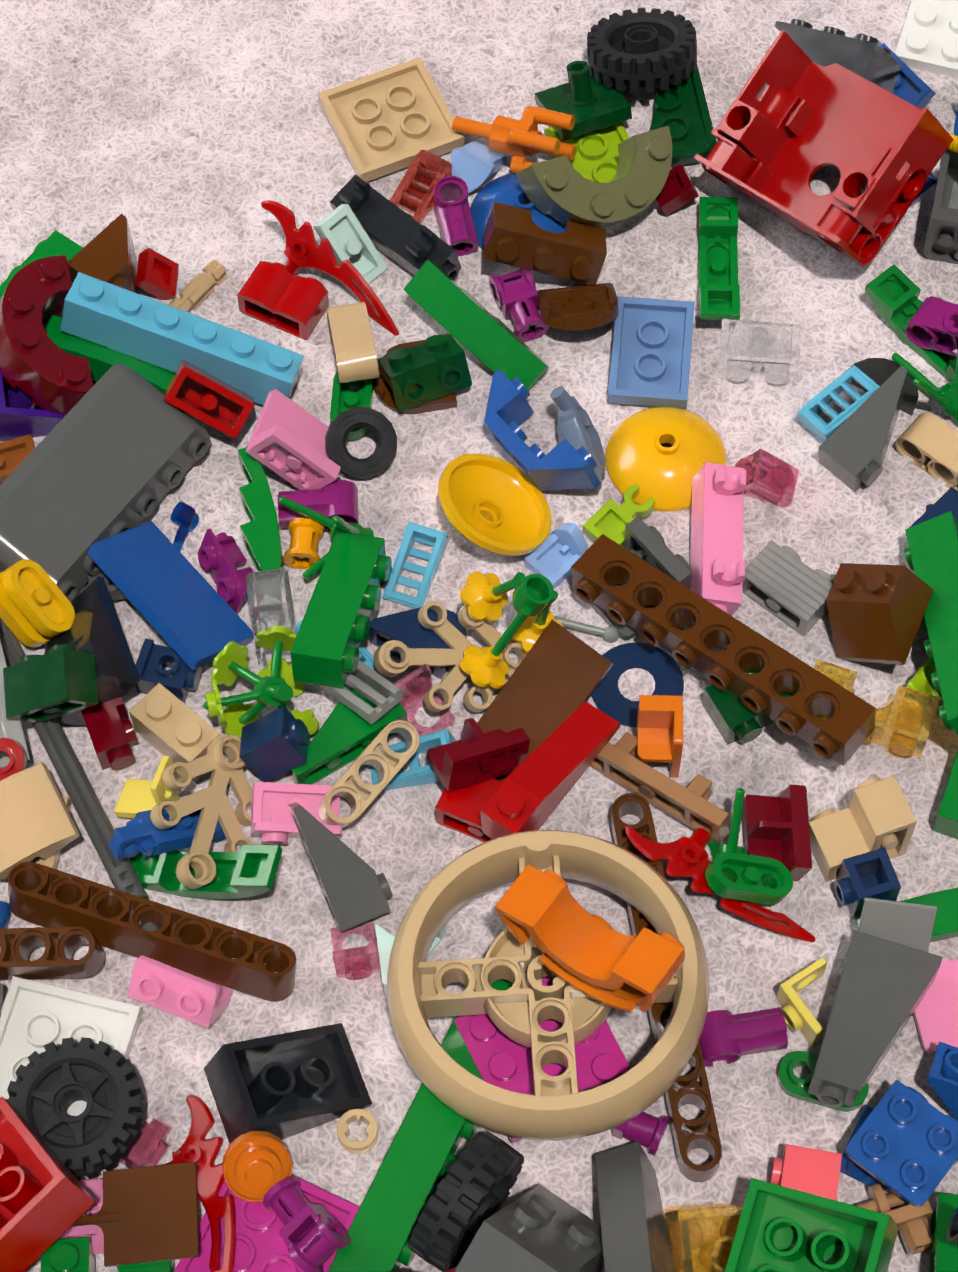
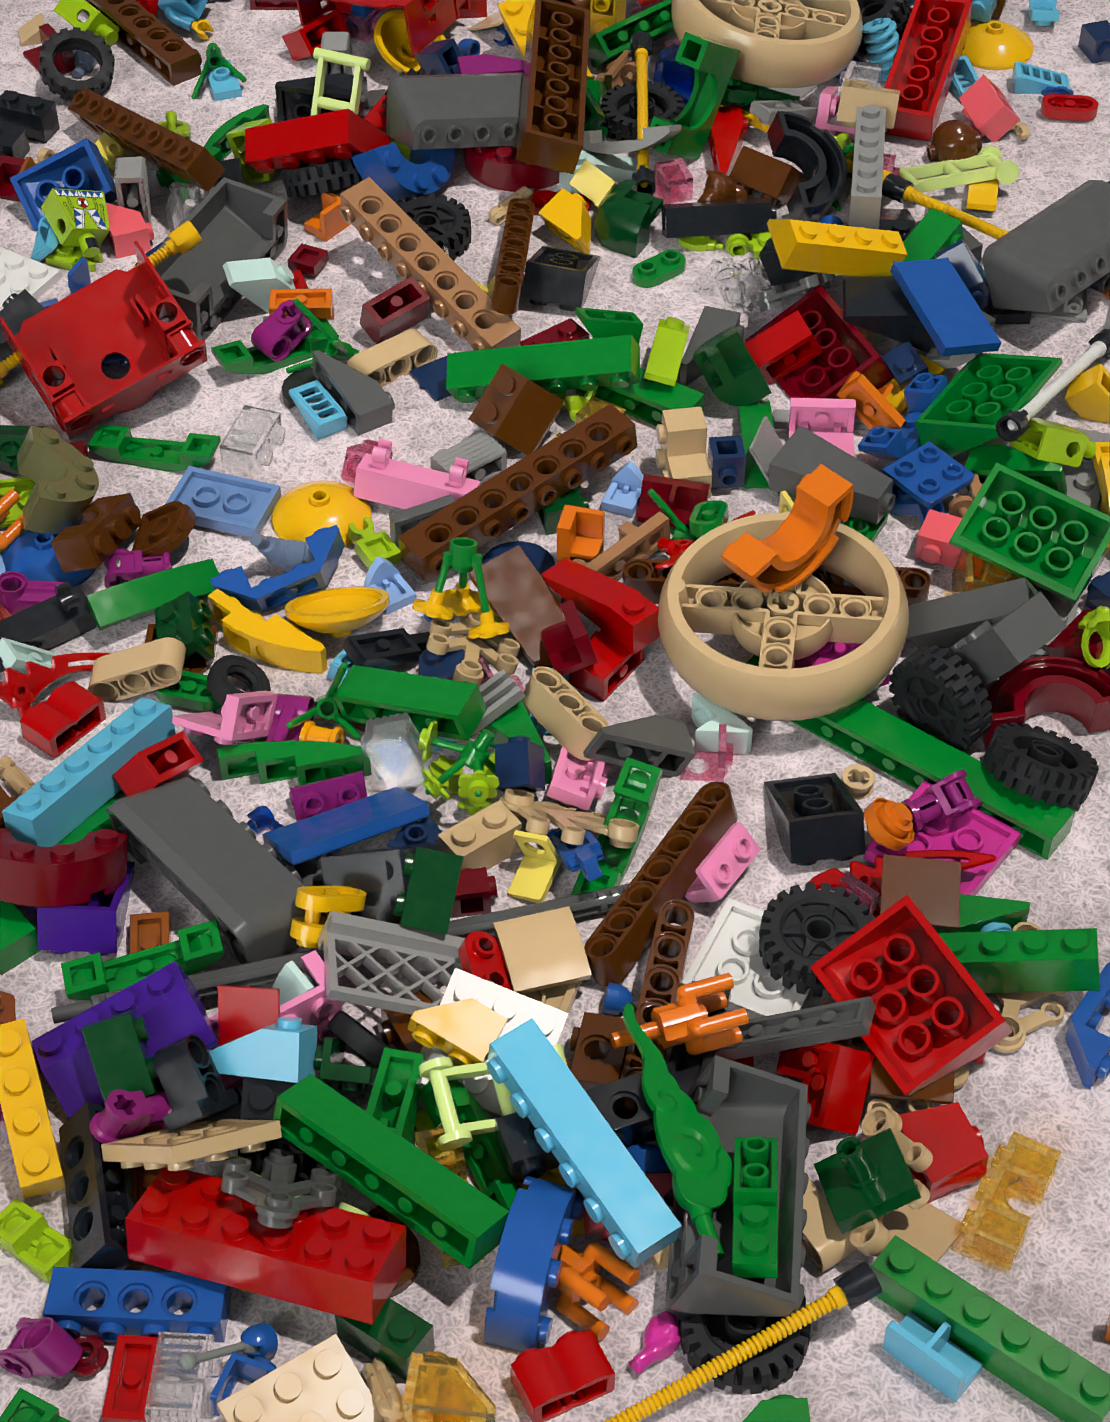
camera: 80 degrees left, 15 degrees down
(433, 566) = (385, 647): none -> black hinge
(444, 440) = (269, 641): none -> yellow slope
(795, 770) = (624, 491): none -> light blue tile

